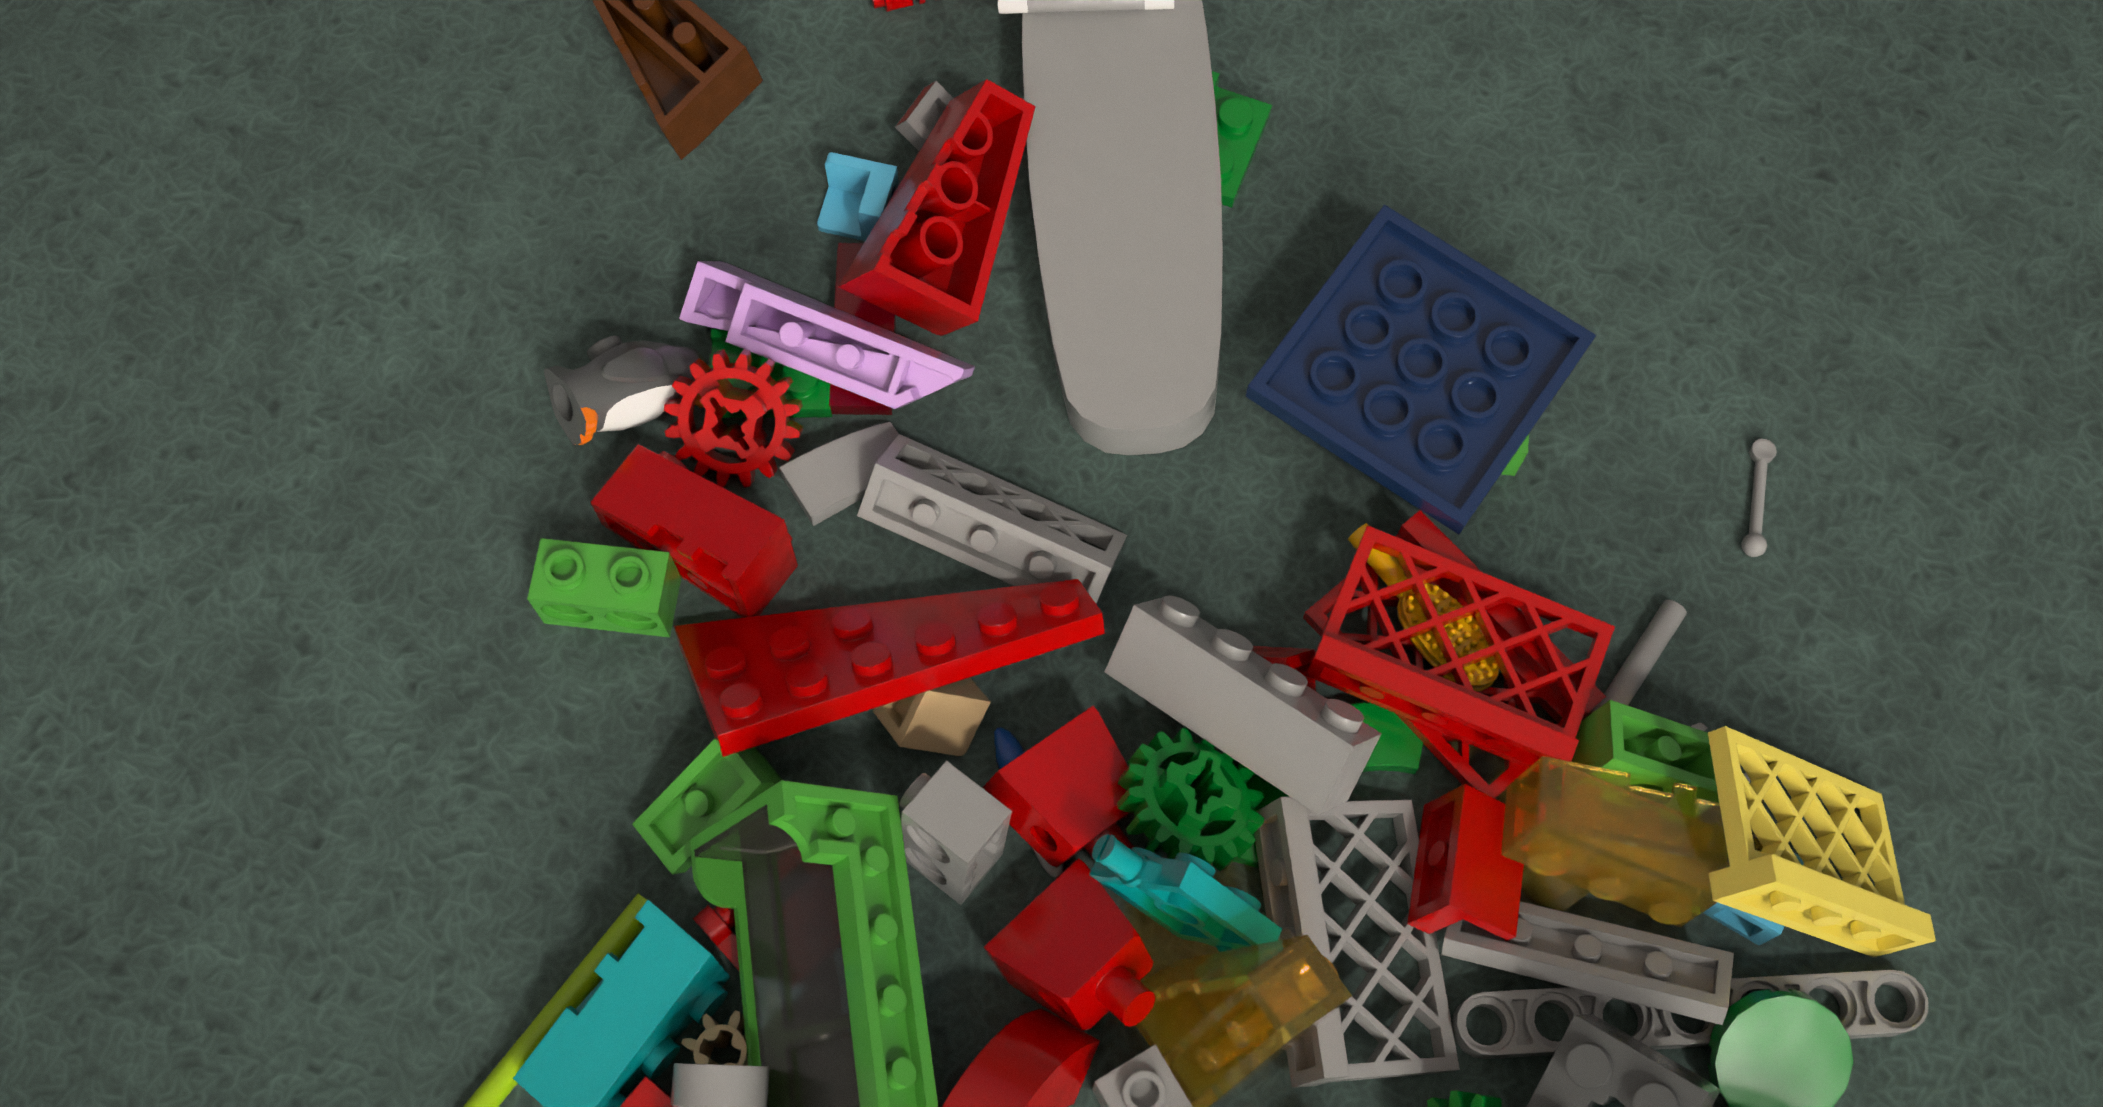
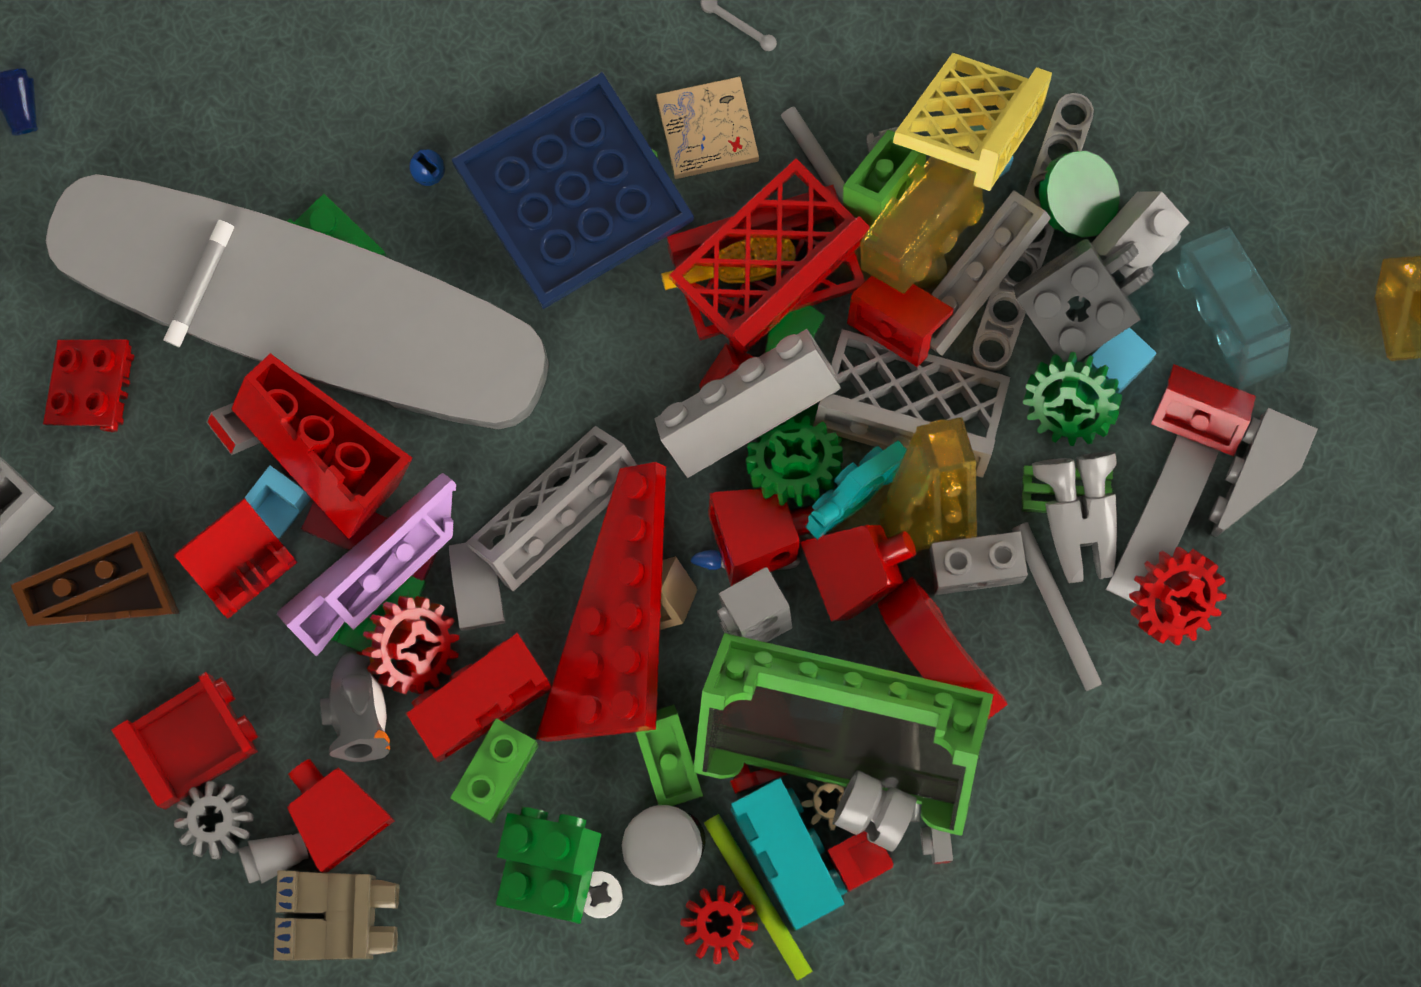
camera: 65 degrees left, 10 degrees up
(341, 494) = (348, 916): none -> dark tan hips
(404, 370) = (268, 855): none -> light grey cone
(427, 287) = (224, 831): none -> light grey gear
(470, 981) = (724, 909): none -> red gear
(480, 420) = (334, 814): none -> red torso
(498, 800) = (605, 898): none -> white wheel
(499, 703) = (546, 864): none -> green plate
(516, 220) = (187, 741): none -> red panel
(585, 850) = (663, 845): none -> light grey piece
(765, 181) = (235, 558): none -> red hinge
(1352, 200) = (420, 173): none -> blue hinge
(1596, 514) = (707, 127): none -> tan tile

